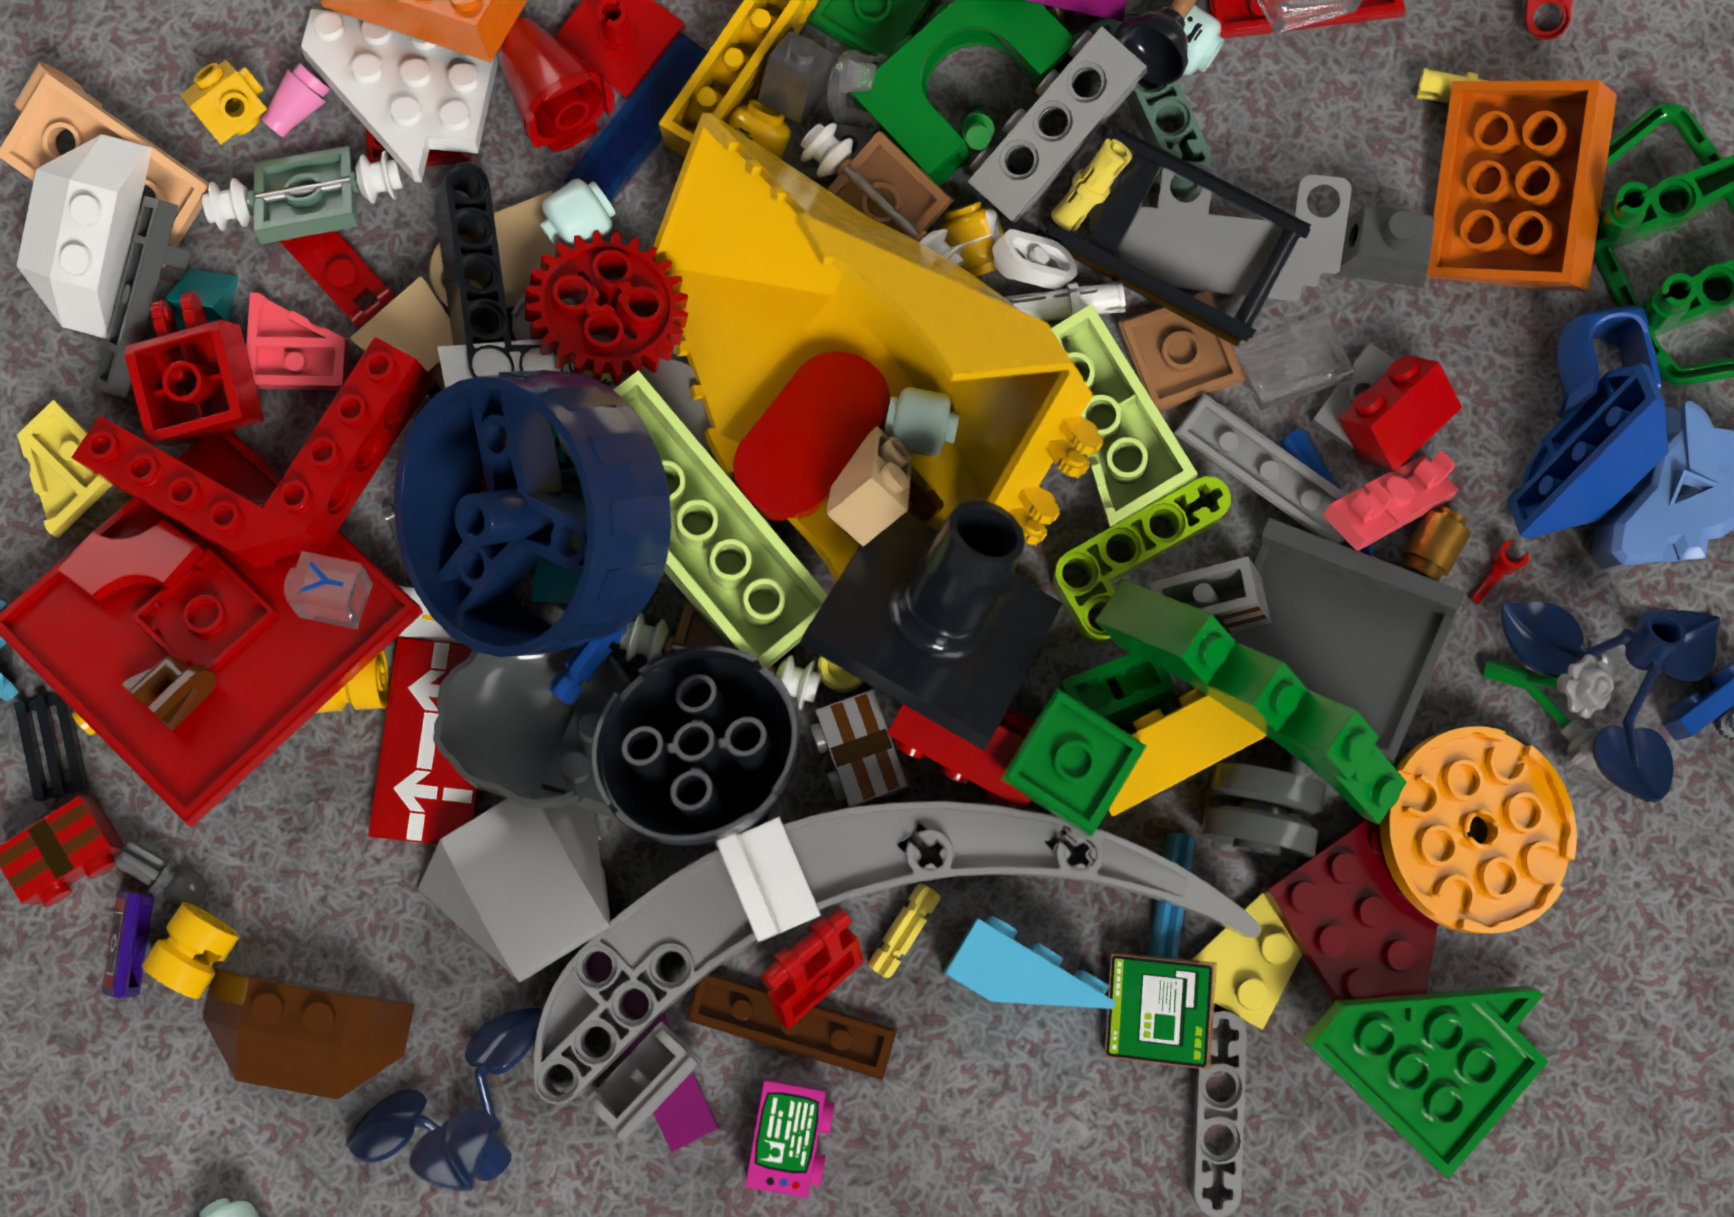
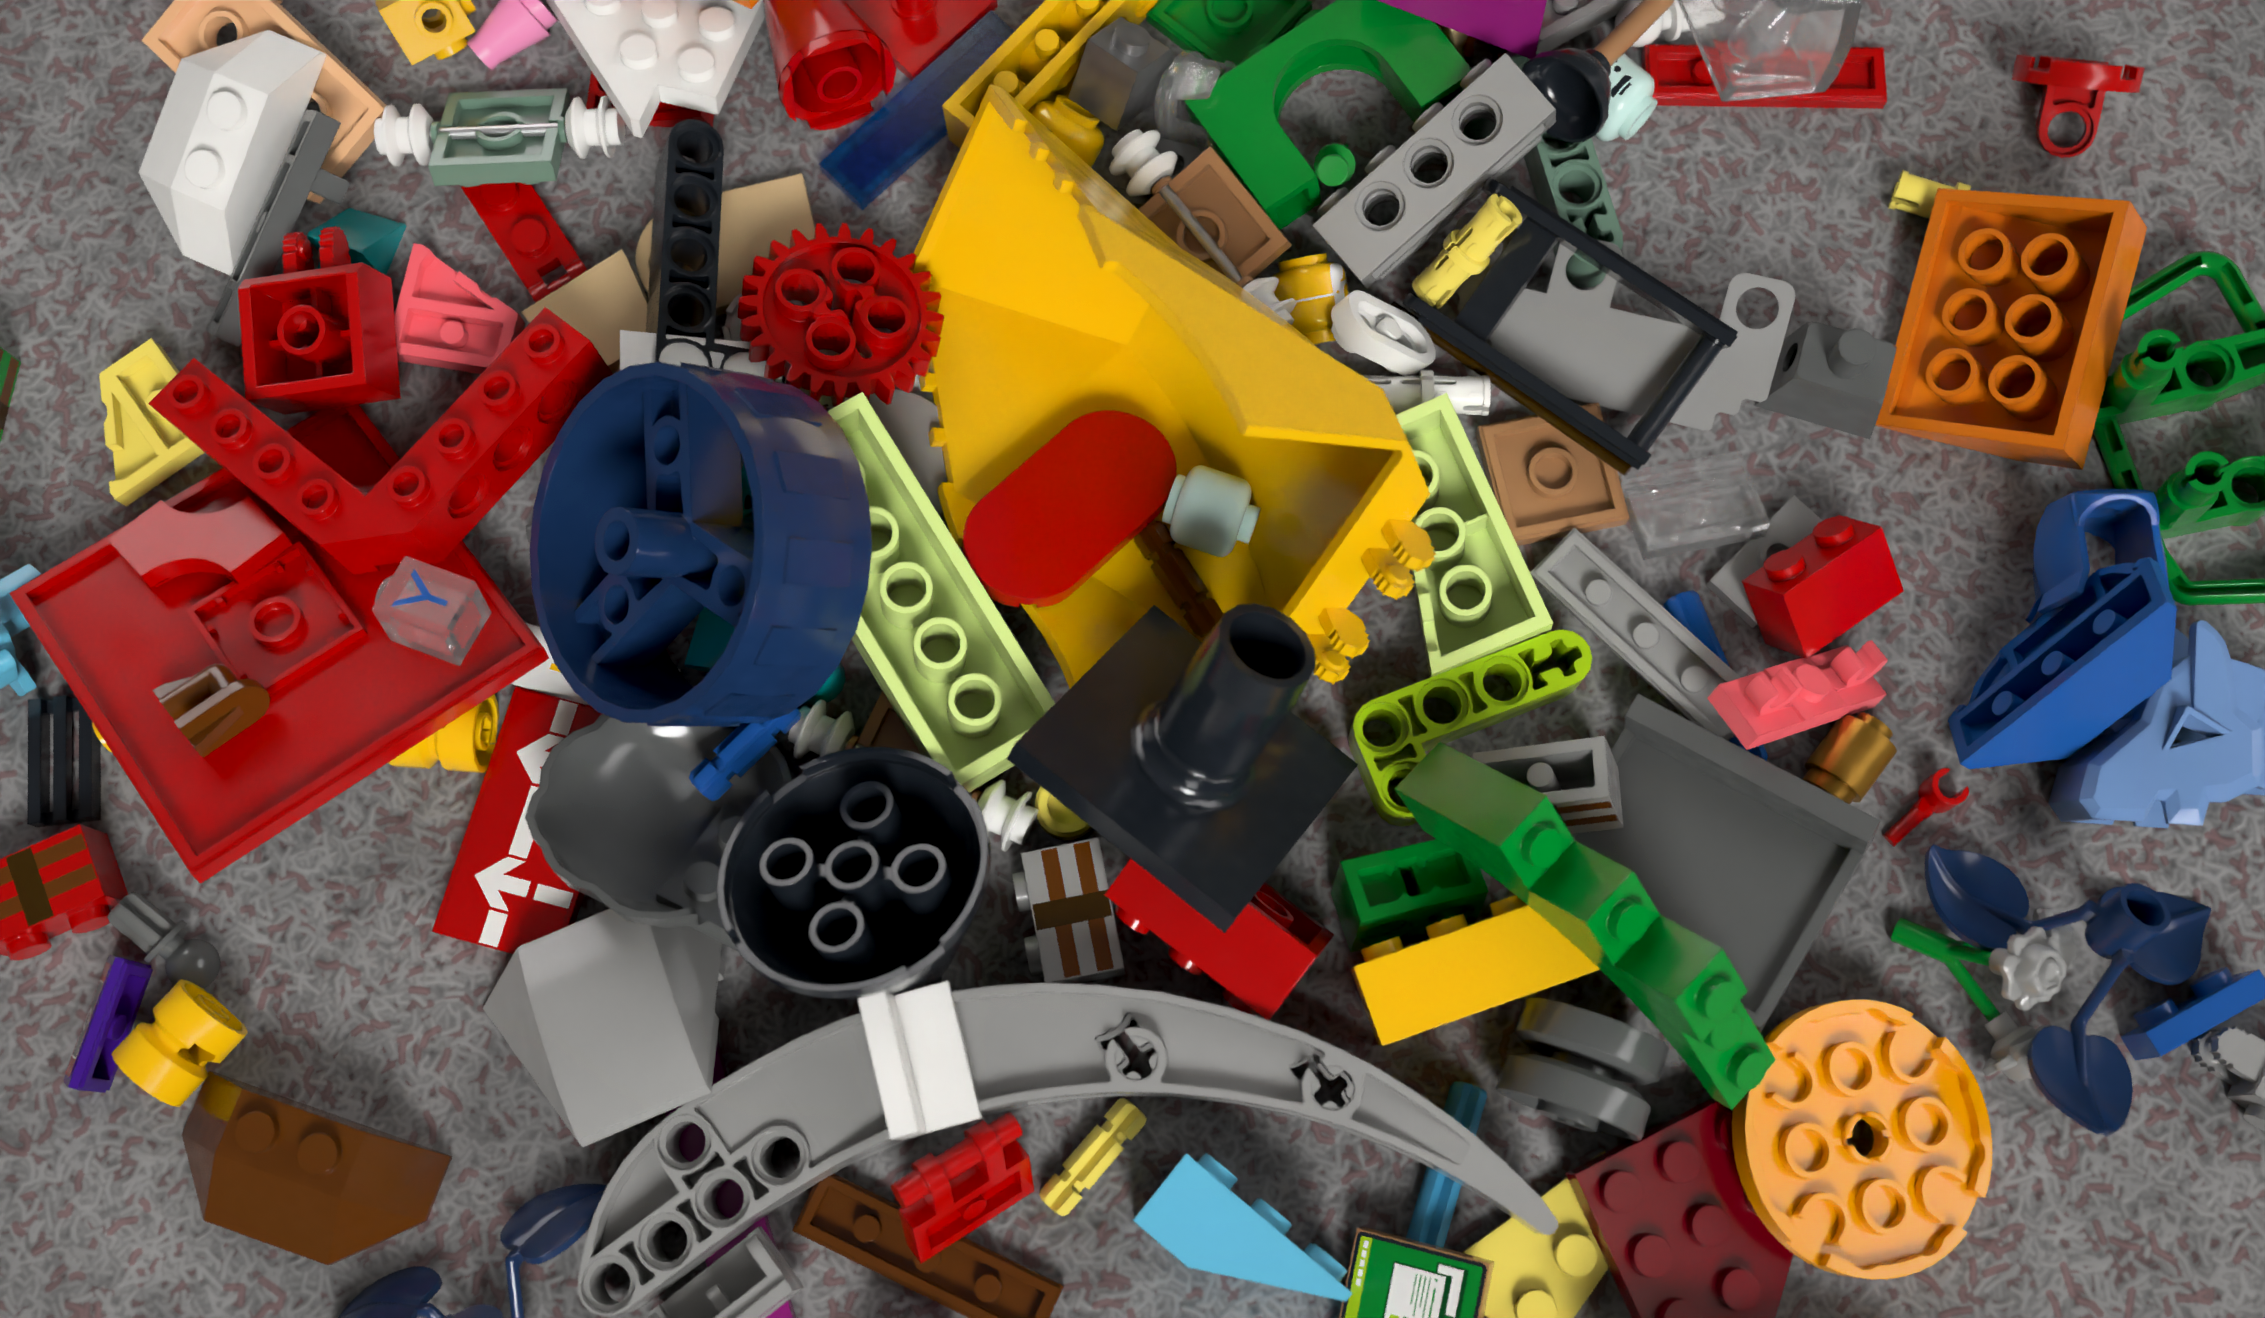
camera: 10 degrees right, 5 degrees down
(576, 211) = (826, 197): light aqua head -> none
(872, 487) = (1134, 580): tan slope -> none
(1073, 762) = (1339, 966): green tile -> none

